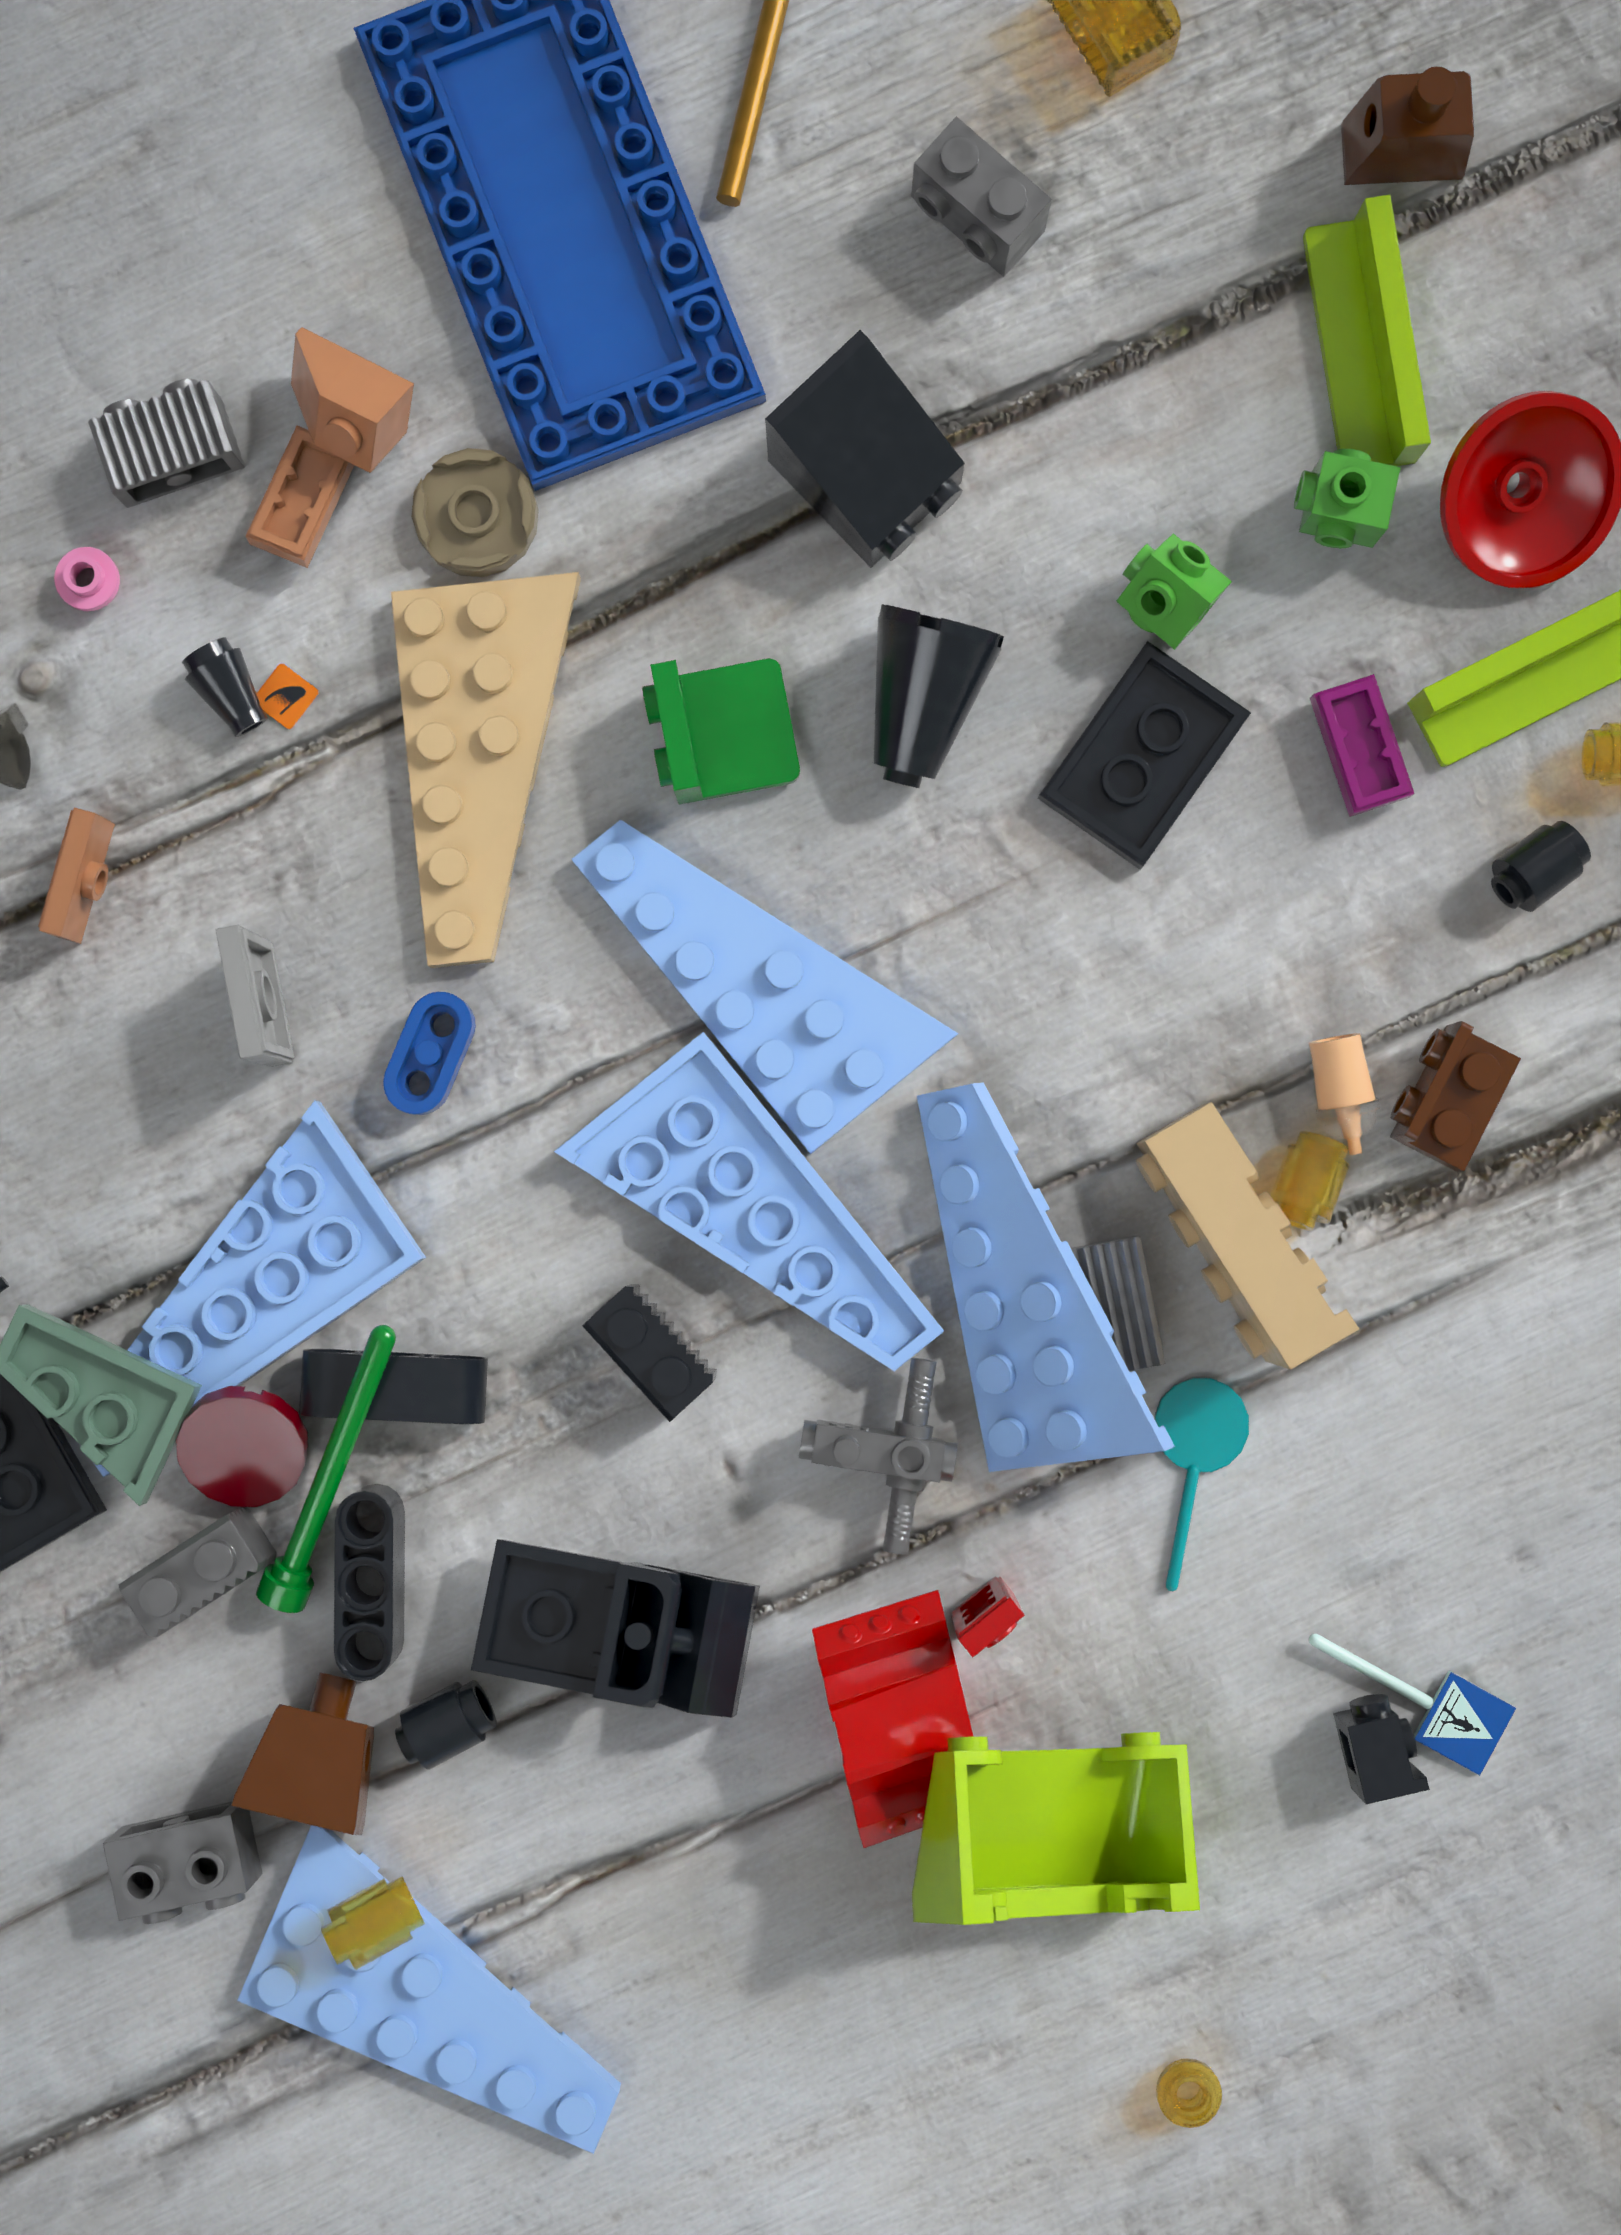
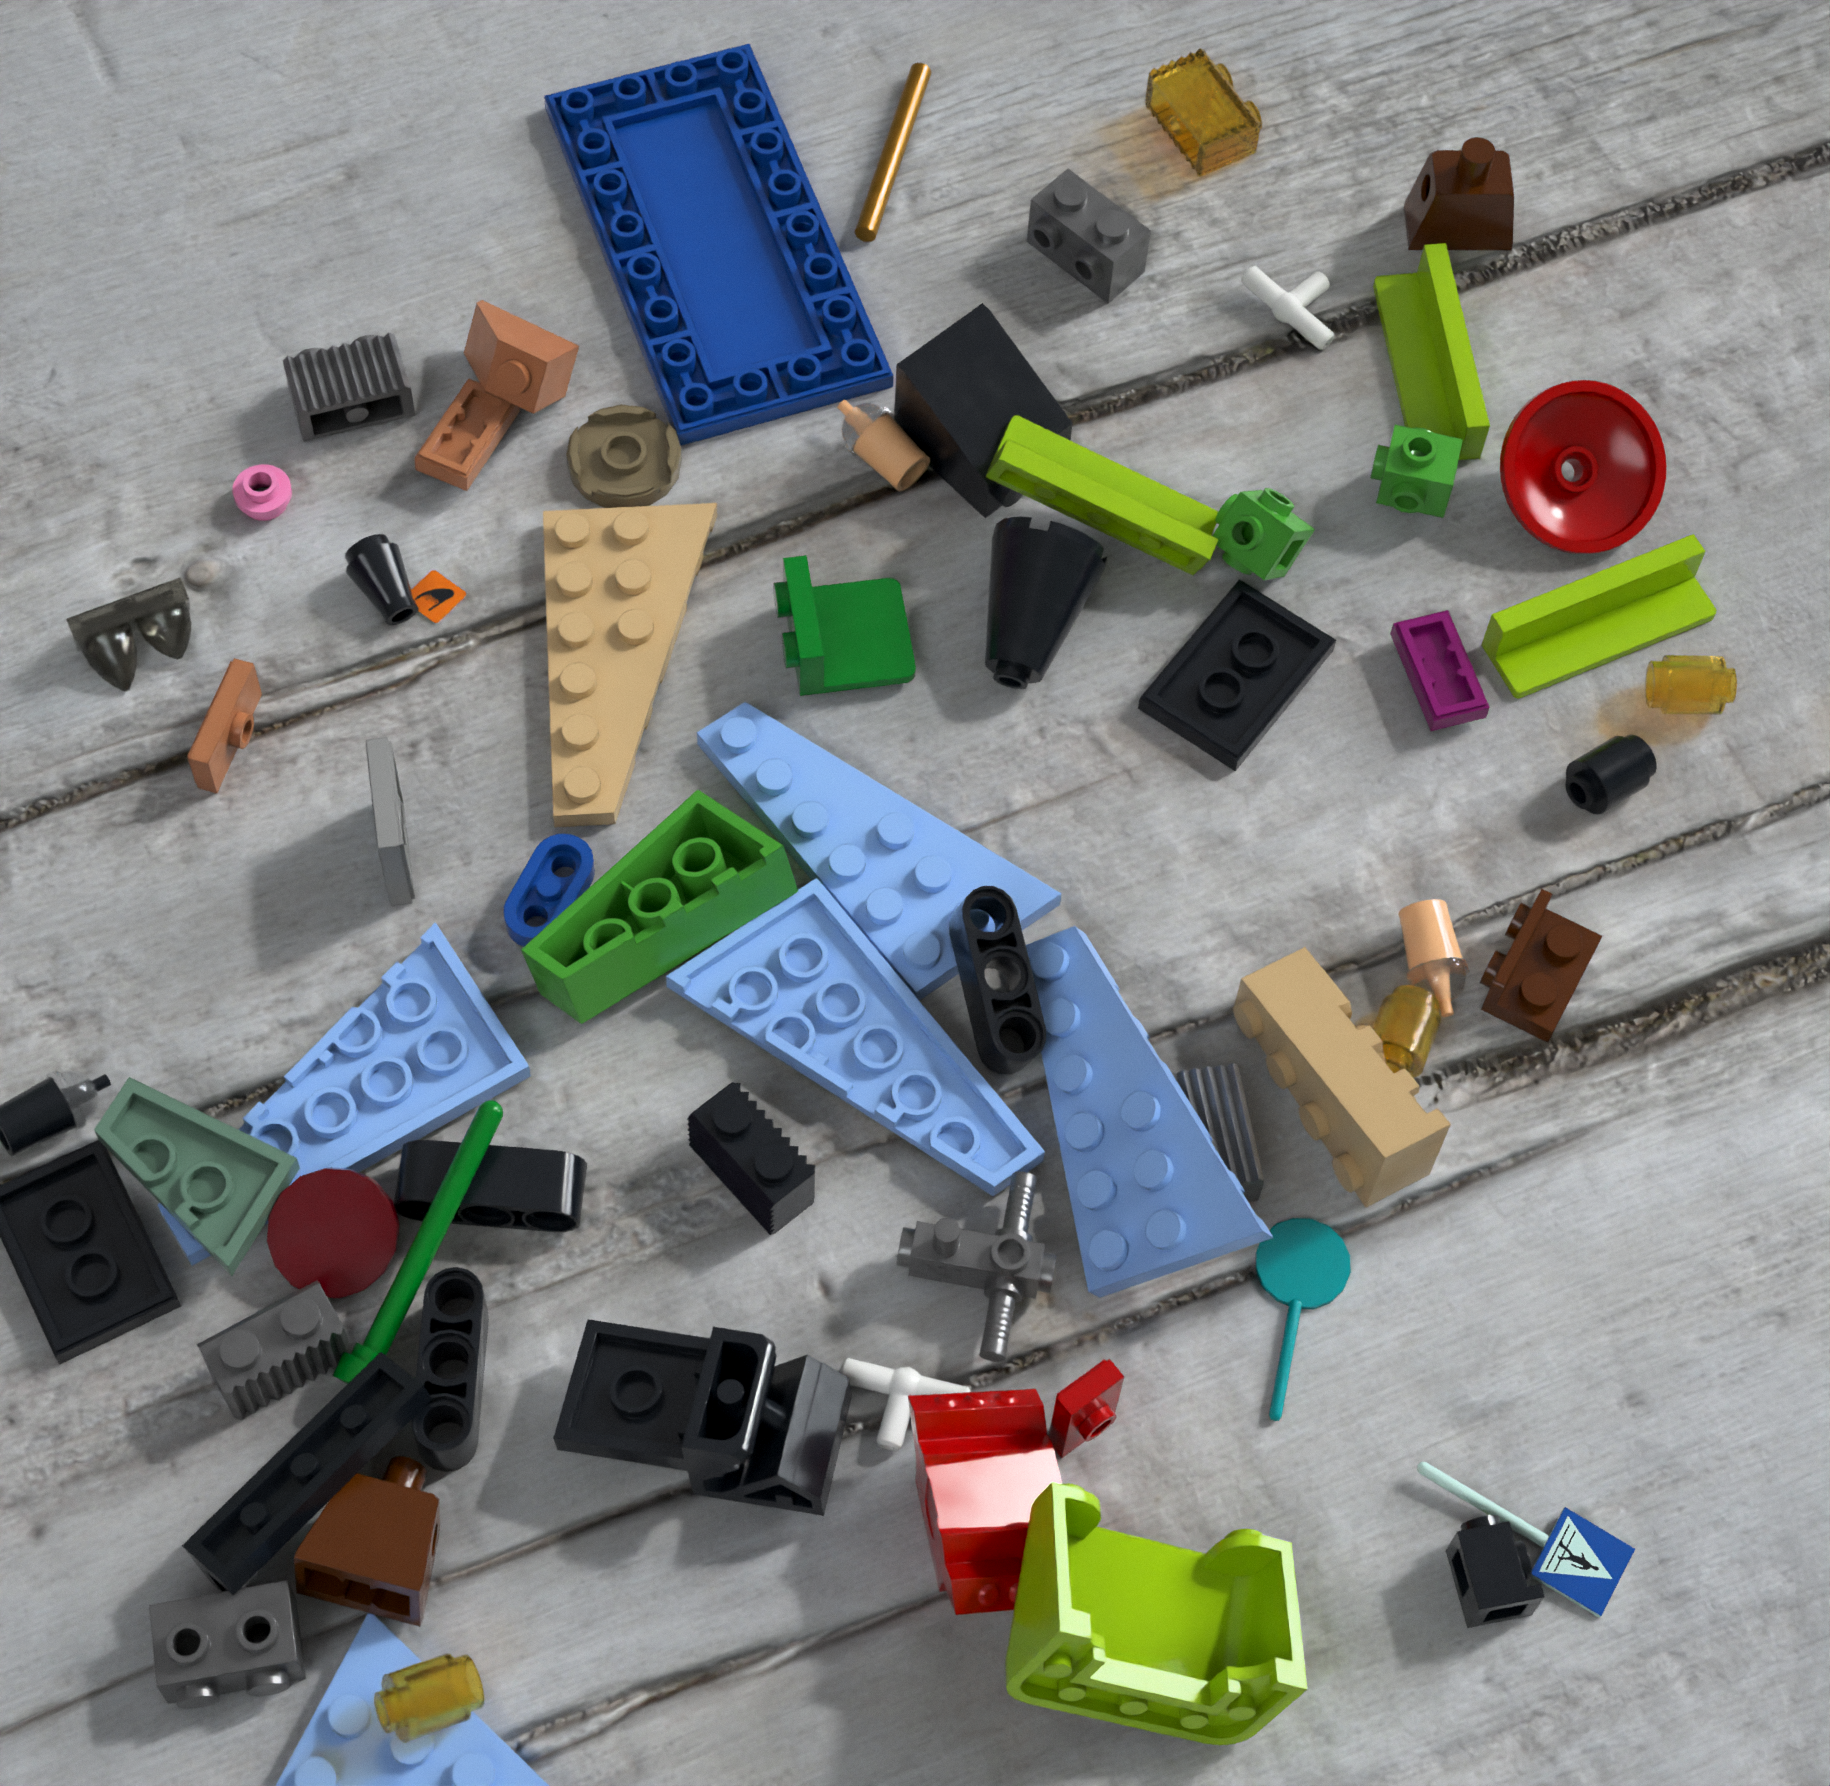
camera: 10 degrees left, 25 degrees down
(239, 1710) = (306, 1474): none -> black fence
(445, 1724) = (518, 1513): black brick -> none
(539, 1082) = (658, 907): none -> bright green wedge
(755, 487) = (882, 444): none -> light nougat piece
(811, 1577) = (898, 1385): none -> white piece
(910, 1174) = (1005, 952): none -> black beam
(1000, 549) = (1104, 495): none -> lime panel
(1208, 274) = (1291, 306): none -> white piece

